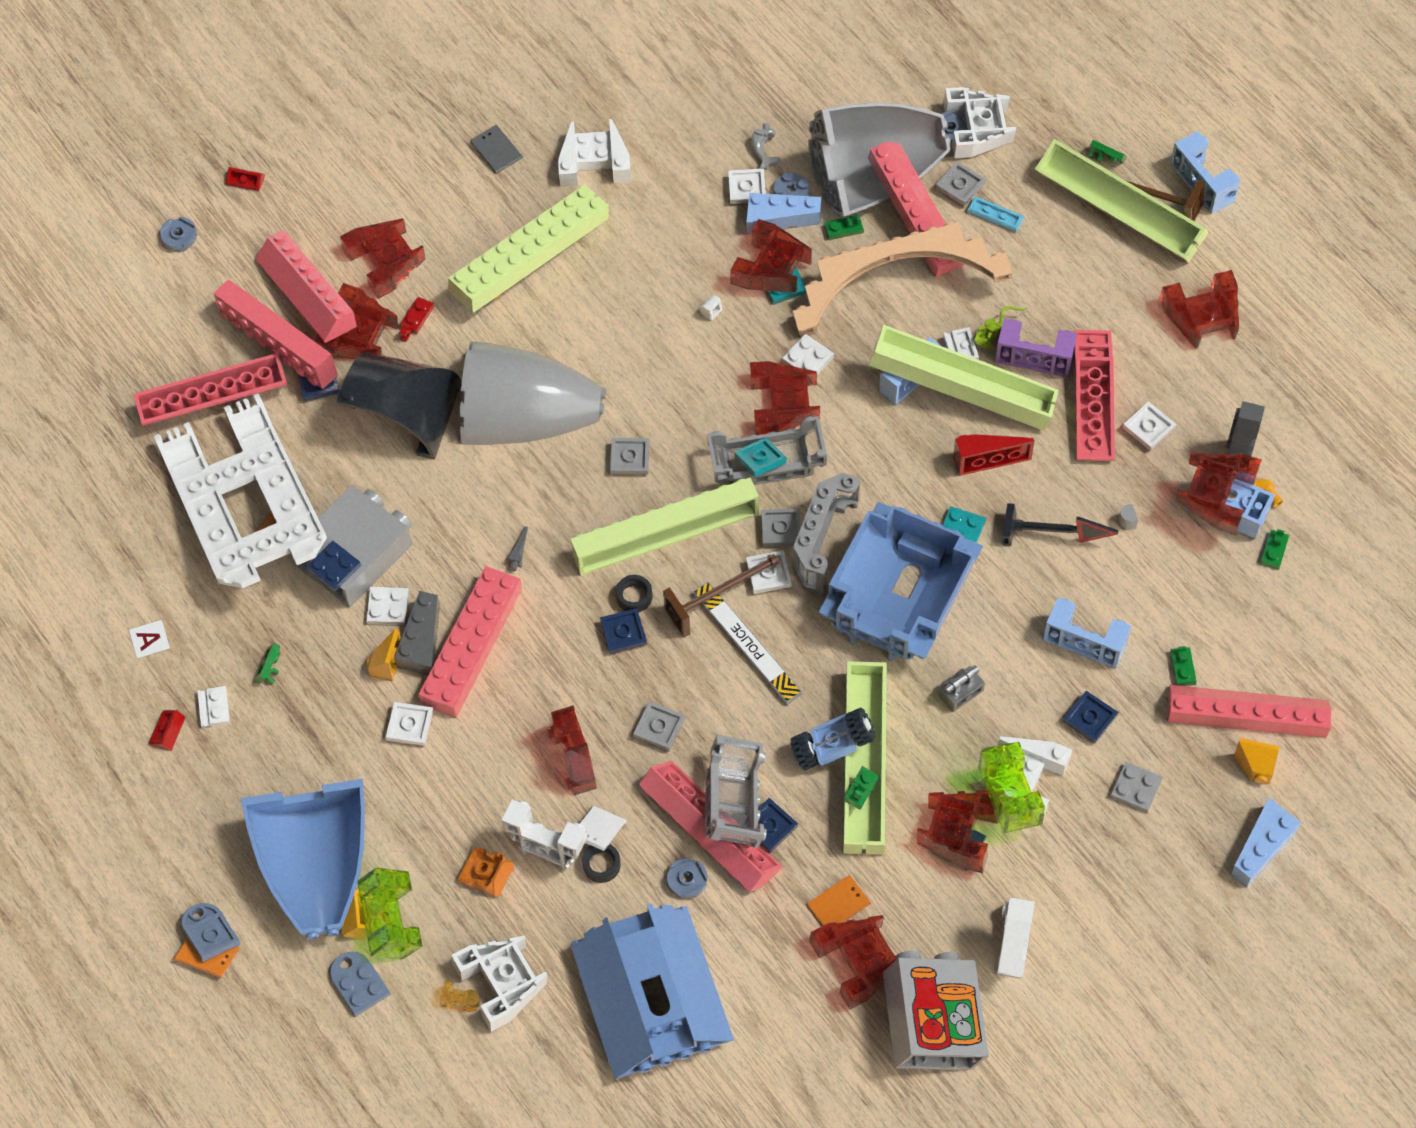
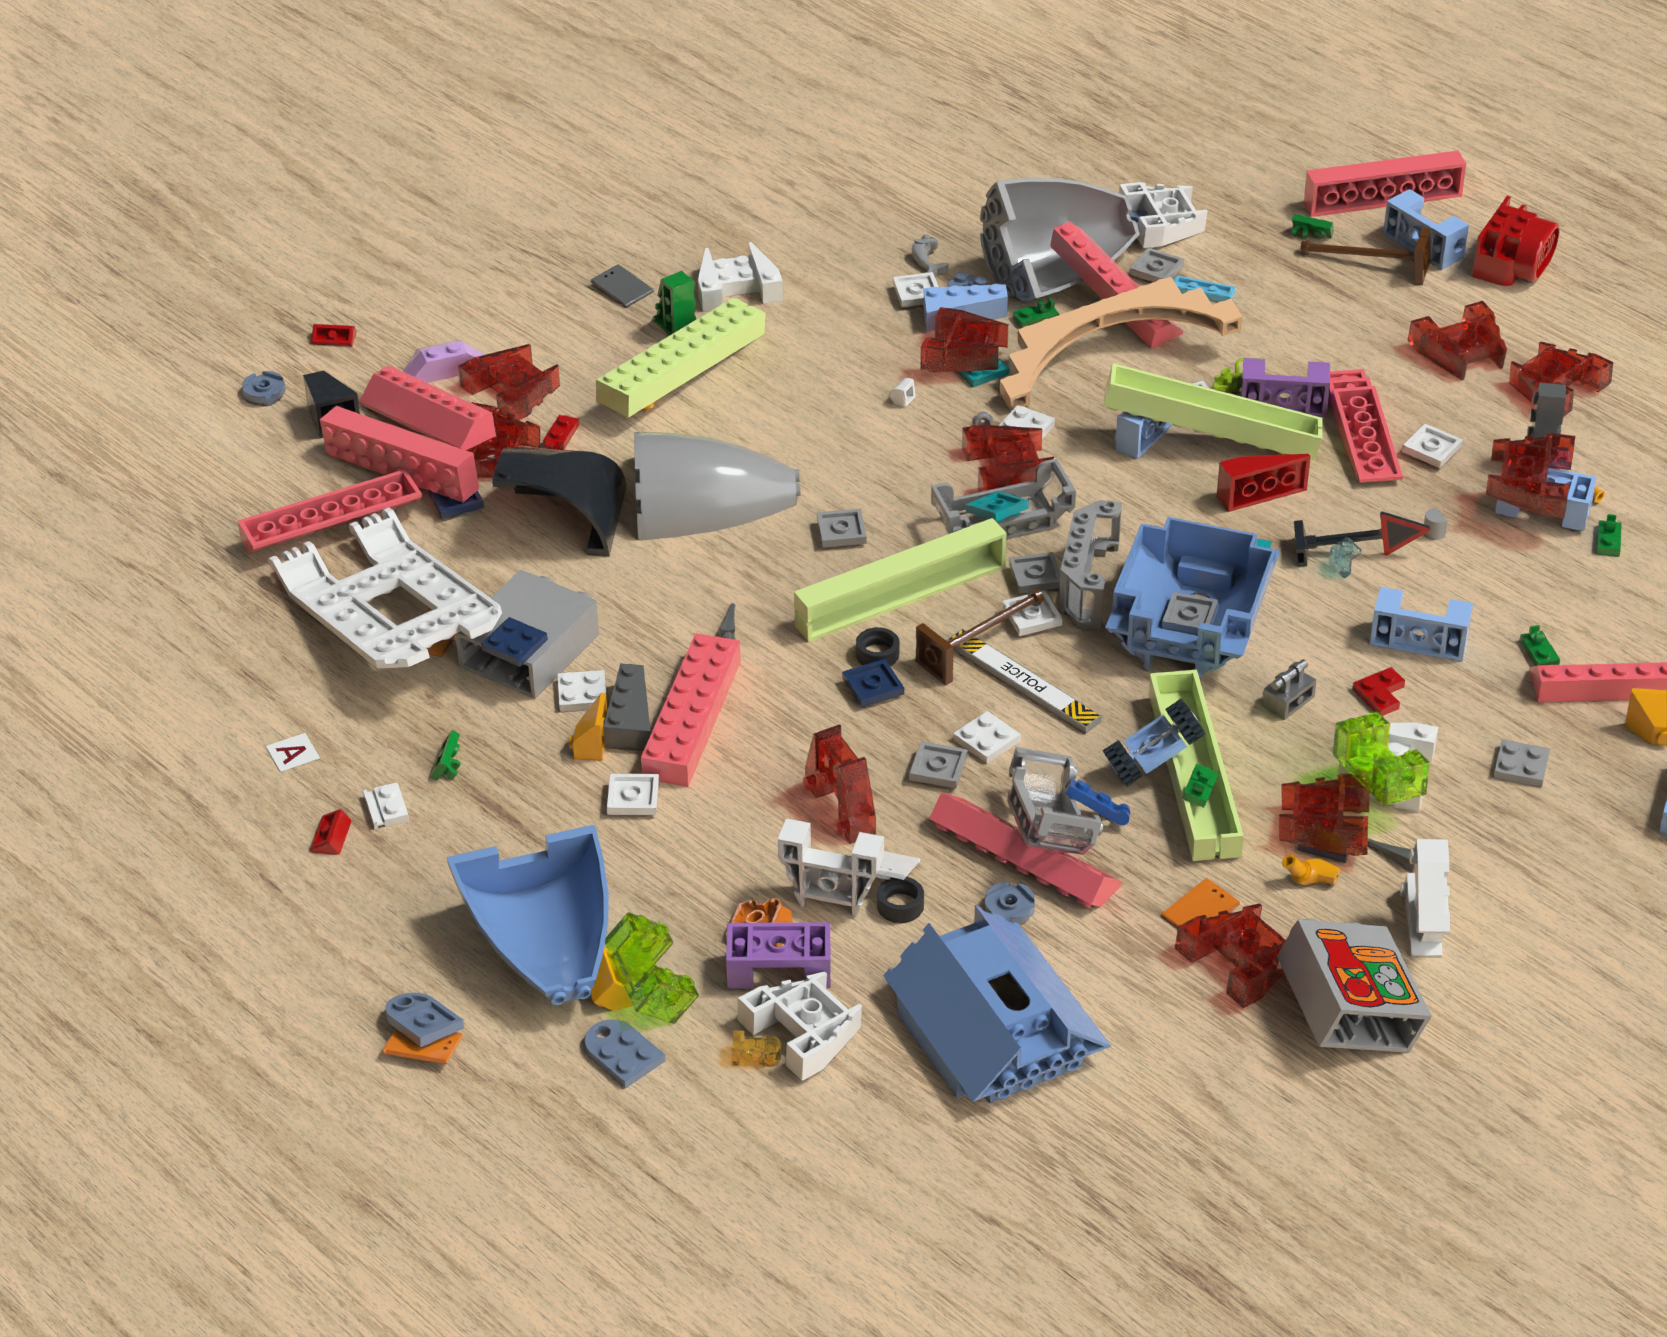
camera: 10 degrees left, 20 degrees down
(227, 264) = (324, 394): none -> black slope
(330, 221) = (440, 360): none -> lavender wedge
(513, 914) = (752, 947): none -> medium lavender plate
(534, 190) = (675, 303): none -> green wedge
(705, 700) = (987, 737): none -> white plate
(772, 349) = (988, 419): none -> light grey plate
(777, 788) = (1098, 802): none -> blue plate
(777, 823) = (1107, 846): dark blue plate -> none
(898, 592) = (1188, 611): none -> light grey plate
(934, 880) = (1311, 870): none -> light orange arm
(1017, 875) = (1398, 854): none -> dark grey piece
(1034, 692) = (1377, 690): none -> red plate
(1040, 545) = (1342, 555): none -> clear light blue bracket
(1090, 717) = (1448, 703): dark blue plate -> none
(1121, 200) = (1342, 259): yellowish green piece -> none
(1182, 110) = (1376, 182): none -> coral brick
(1273, 358) = (1562, 368): none -> clear red wedge
(1278, 203) = (1514, 246): none -> red brick

